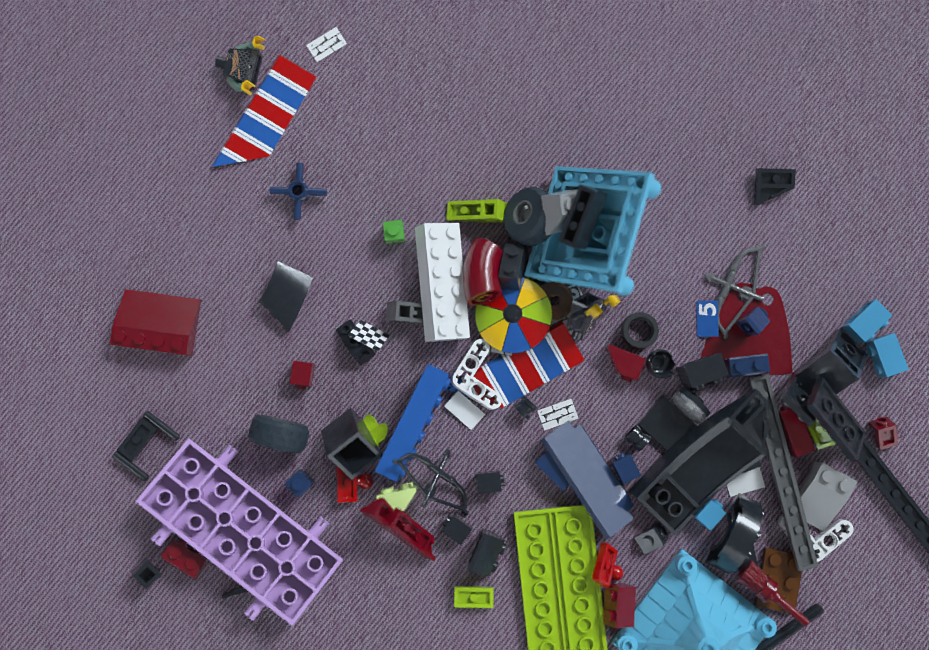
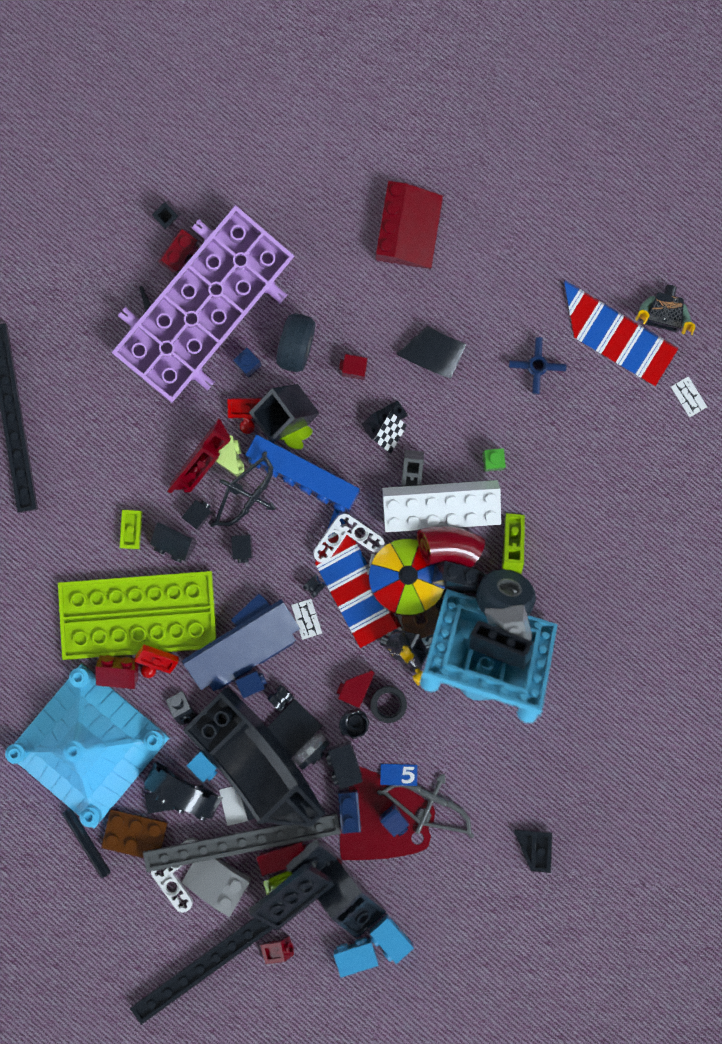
camera: 90 degrees right, 0 degrees up
(138, 439) = (295, 208): black plate -> none
(464, 410) = (313, 526): white sticker -> none
(766, 589) = (126, 818): dark red piece -> none

